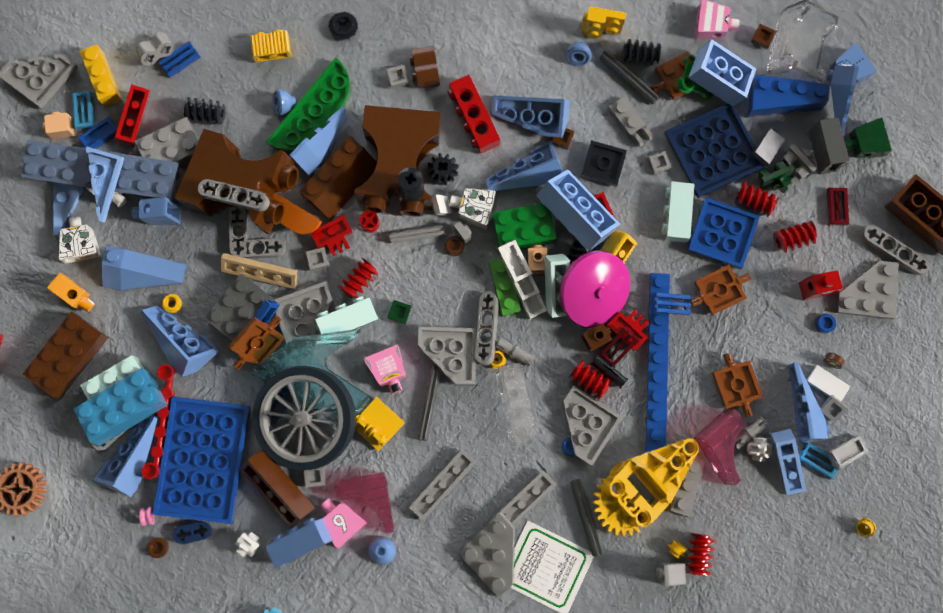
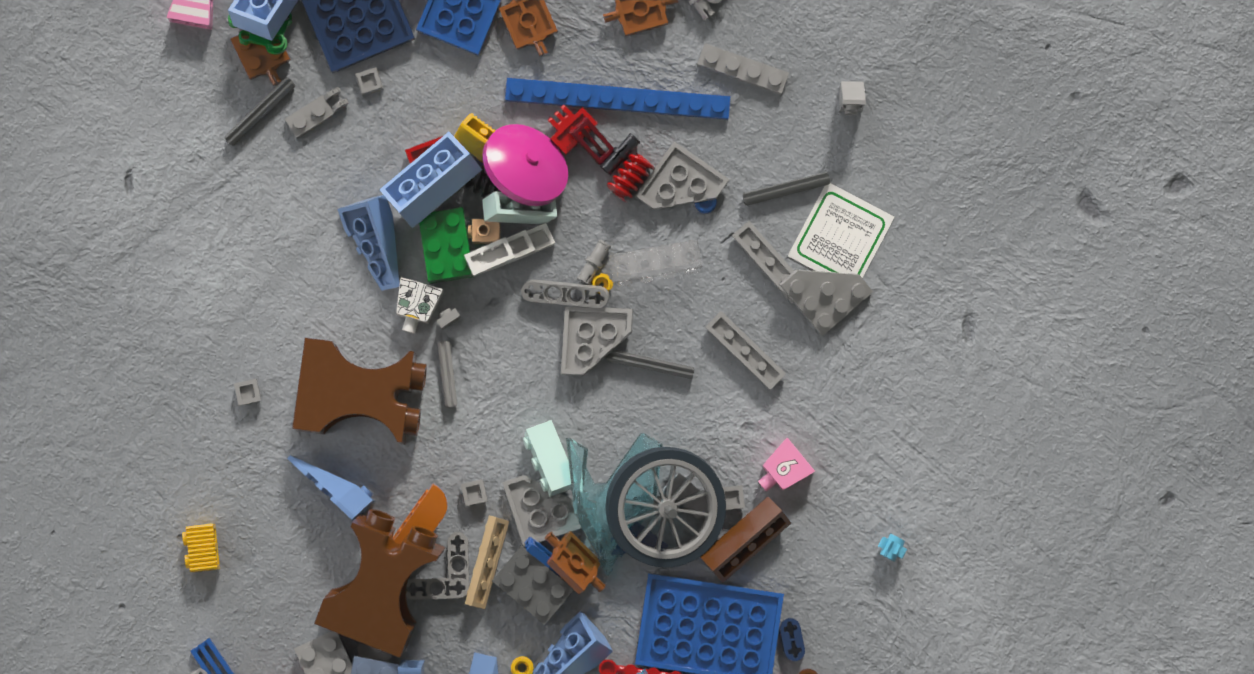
camera: 90 degrees left, 5 degrees up
(204, 112) = (283, 630): black piece -> none
(234, 192) = (405, 582): light grey beam -> none
(247, 544) = (807, 574): white gear -> none
(282, 102) = (275, 534): medium blue brick -> none
(298, 542) = (807, 514): medium blue brick -> none
(313, 110) = (287, 495): green plate -> none
(333, 235) = (446, 473): red hinge -> none
(338, 178) = (376, 464): reddish brown slope -> none
(343, 18) = (167, 459): black gear -> none
(358, 279) = (501, 443): red piece -> none
(369, 217) = (431, 427): red wheel -> none
(371, 491) = (750, 433): clear pink arch -> none
(378, 424) = (673, 423): yellow hinge -> none
(382, 550) = (817, 422): medium blue brick -> none
(387, 368) = (609, 411): bright pink torso -> none
(399, 312) = (542, 396): dark green plate -> none
(411, 184) = (394, 363): black piece -> none
(426, 67) = (237, 358): reddish brown brick -> none
(441, 205) = (413, 342): white tile -> none
(449, 164) = (376, 339): black gear -> none
(454, 246) = (463, 329): reddish brown tile -> none
(466, 87) = (266, 307): red brick -> none
(504, 288) = (516, 272): bright green plate -> none
(539, 115) = (304, 222): medium blue wedge -> none
(564, 142) = (332, 195): reddish brown tile -> none
(578, 54) = (227, 170): medium blue brick -> none
(597, 337) = (580, 166): reddish brown brick -> none
(602, 20) = (191, 145): yellow plate -> none
(604, 163) = (368, 147): black plate -> none
(641, 52) = (229, 93): black piece -> none
(656, 474) = (741, 106): yellow connector -> none
(677, 549) = (824, 89): yellow plate -> none
(678, 212) = (432, 62): light aqua brick -> none
(685, 304) = (545, 60): blue tile -> none
(700, 554) = (831, 63): red piece -> none
(718, 444) = (707, 34): clear pink arch -> none

